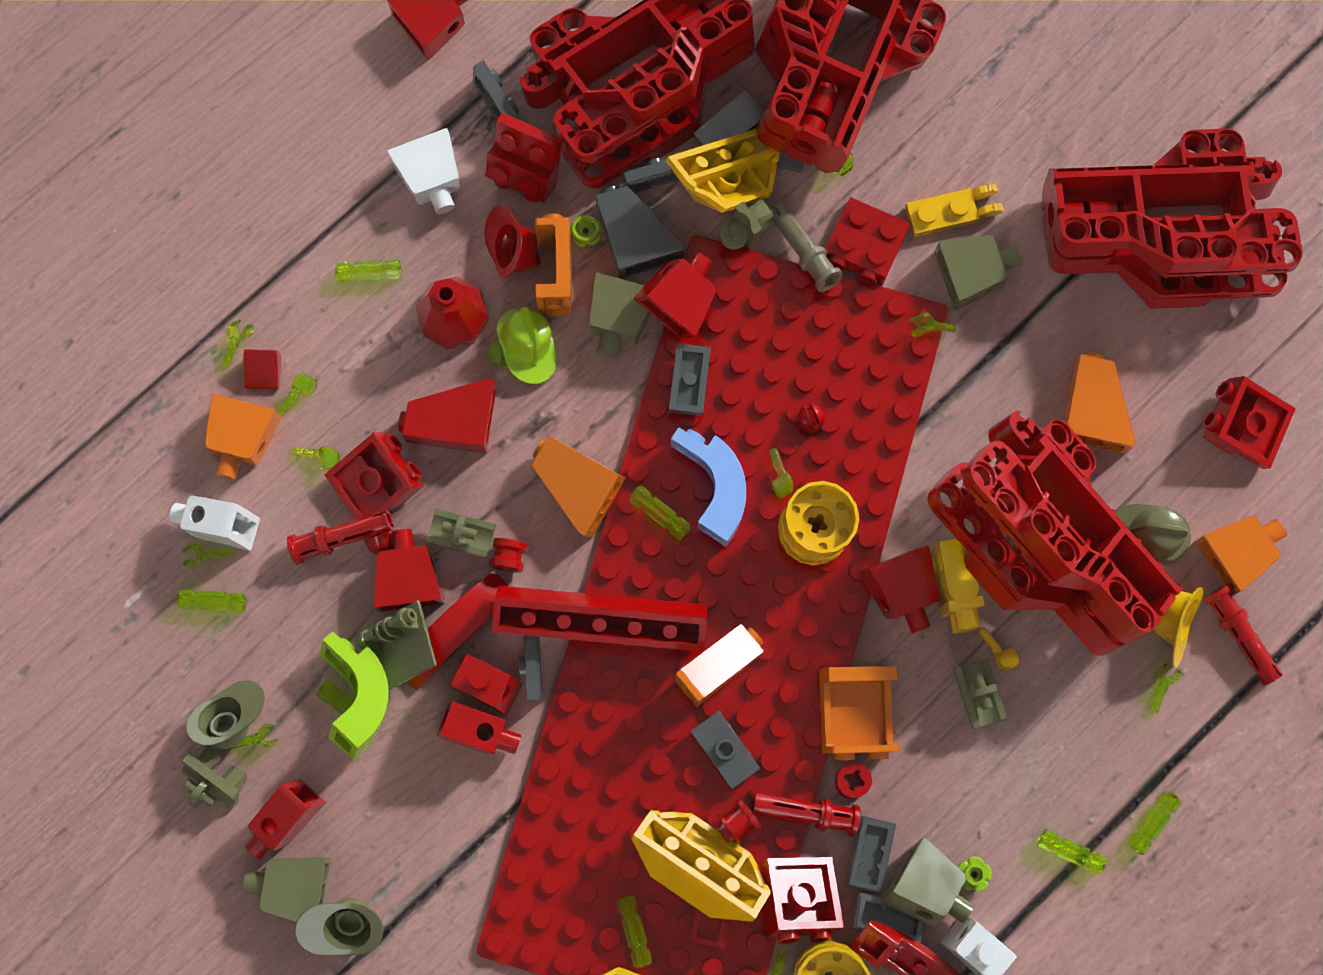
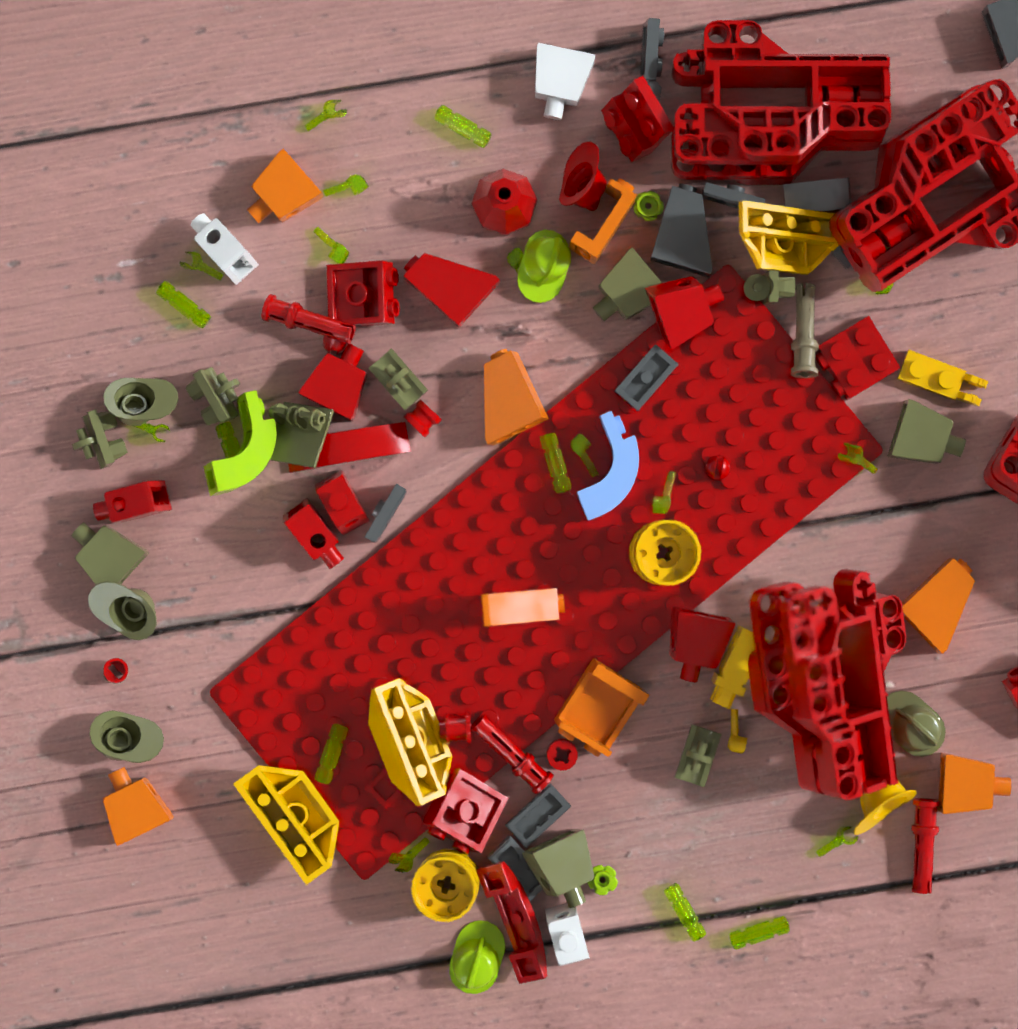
camera: 35 degrees right, 10 degrees up
(261, 369) = (332, 150): red slope -> none
(300, 659) = (218, 393): none -> olive hips
(600, 618) = (457, 514): red brick -> none
(671, 483) = (579, 446): none -> clear neon green hand
(725, 749) = (484, 669): dark grey plate -> none

